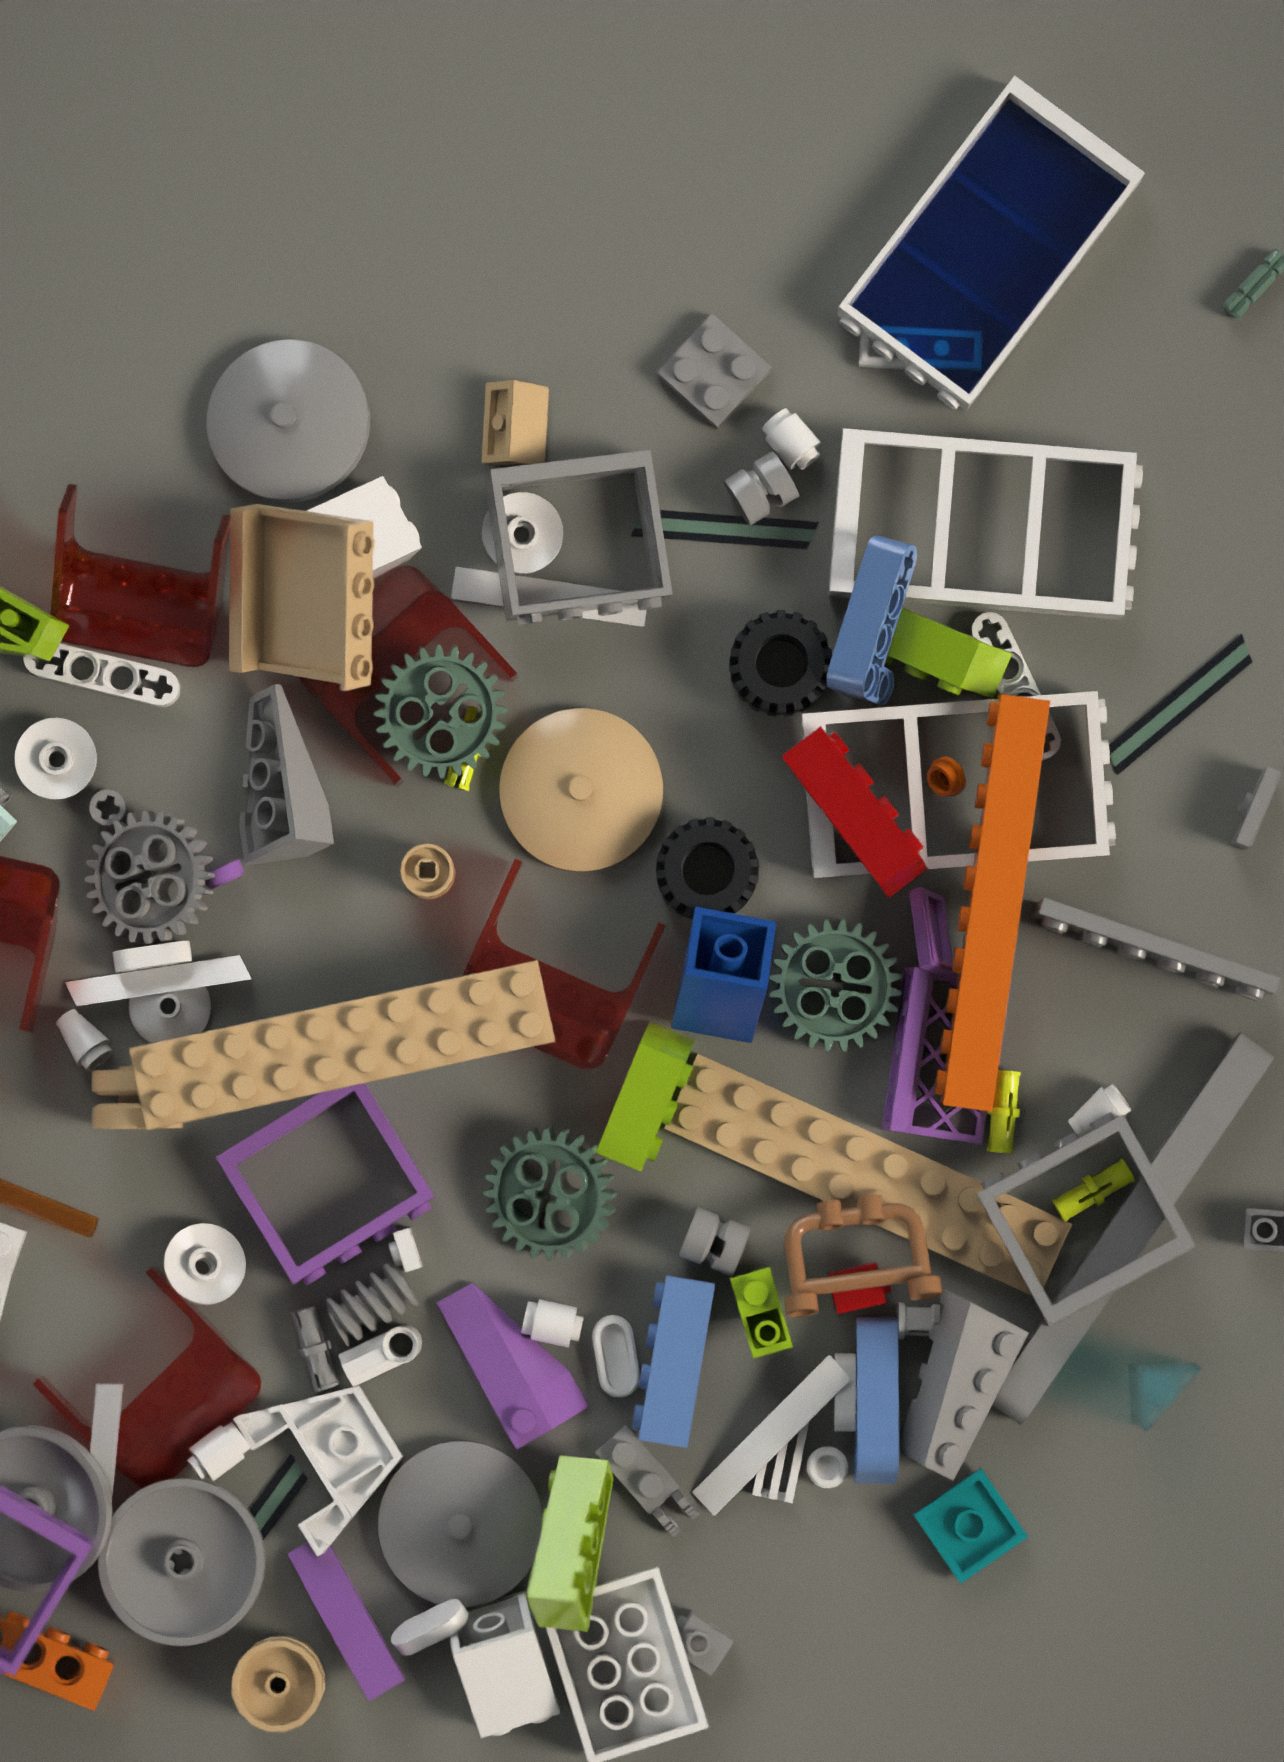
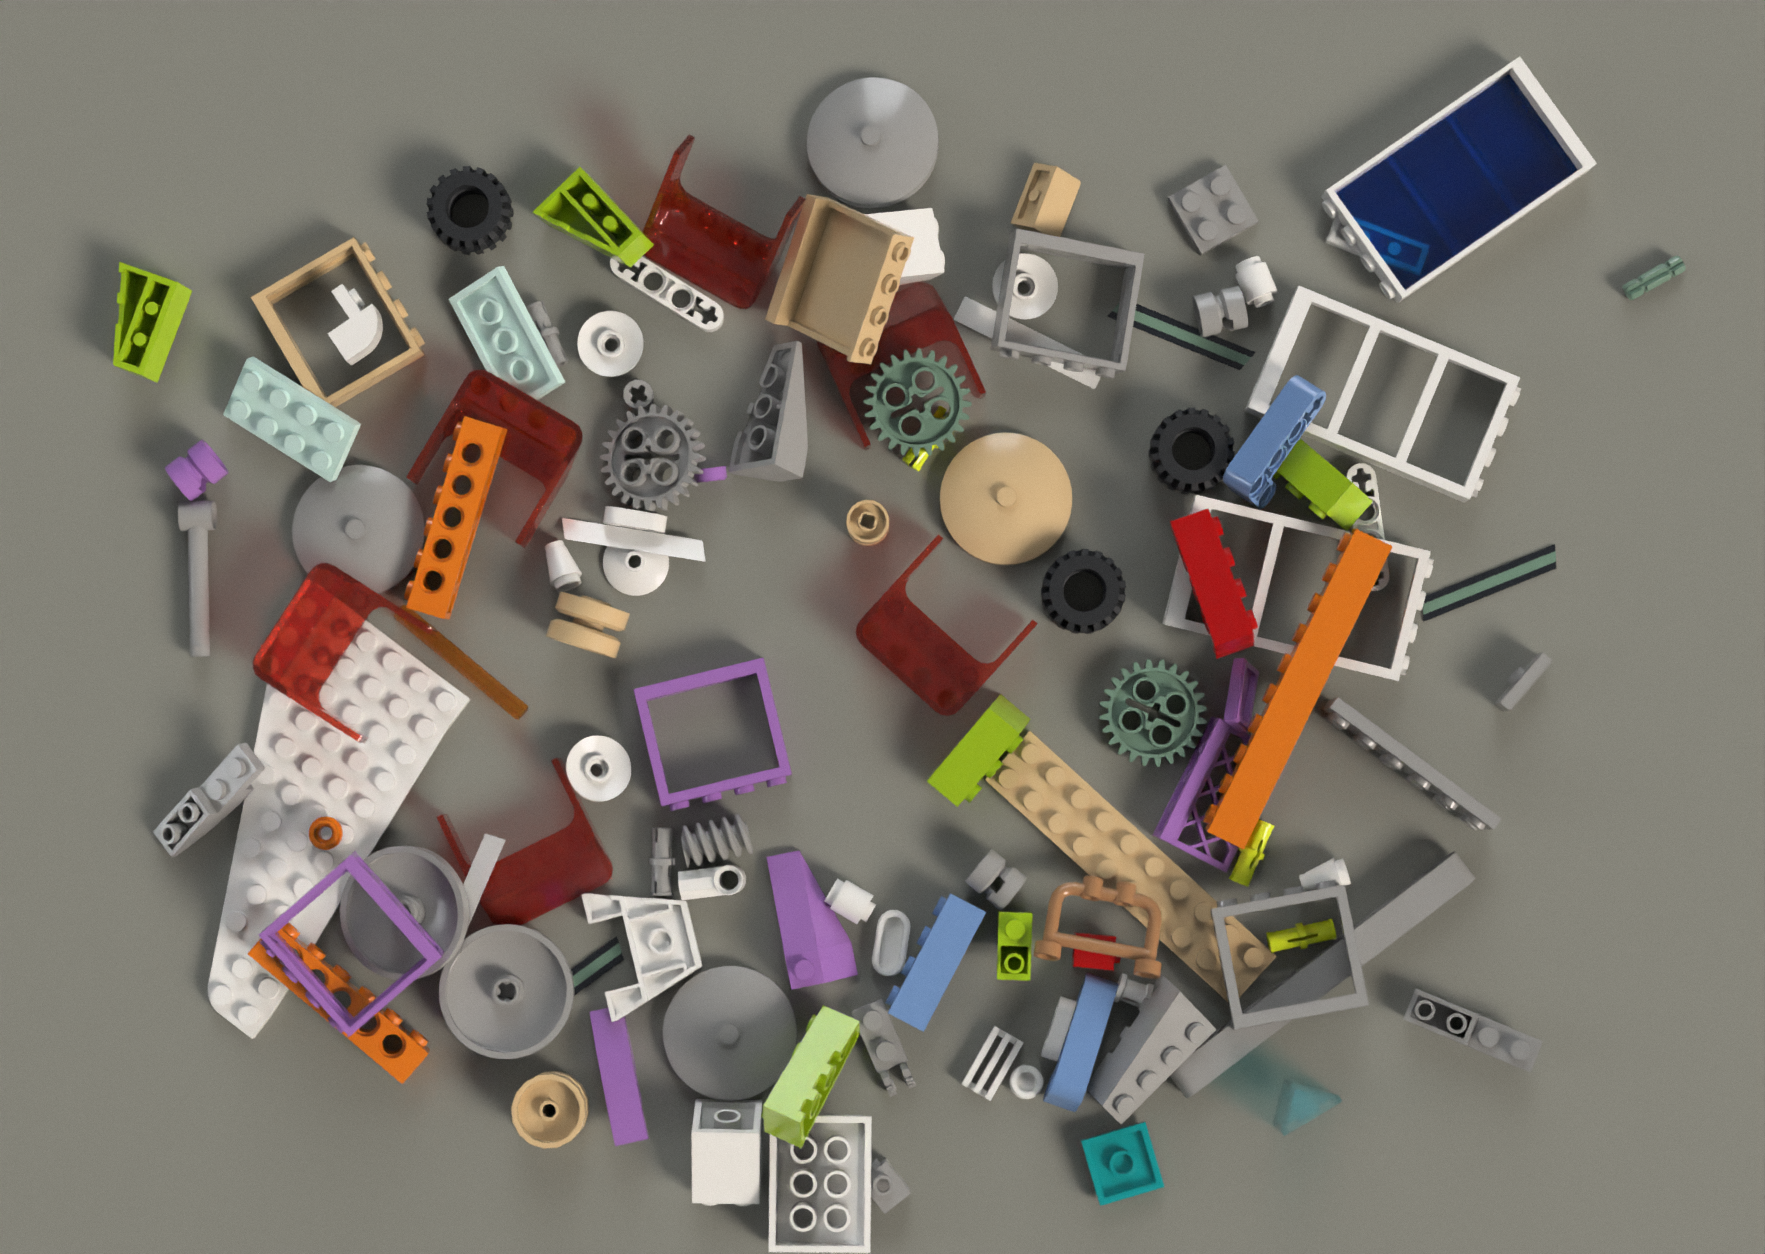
camera: 25 degrees right, 0 degrees up
(218, 1452) = (561, 916): white brick -> none
(341, 1045) = (758, 634): tan plate -> none
(405, 1250) = (755, 808): white plate -> none
(429, 1627) = (680, 1104): white tile -> none
(516, 1181) = (904, 818): sand green gear -> none
(724, 975) = (1070, 676): blue slope -> none
(772, 1435) = (991, 1043): white sticker -> none
(946, 777) = (1291, 579): orange plate -> none

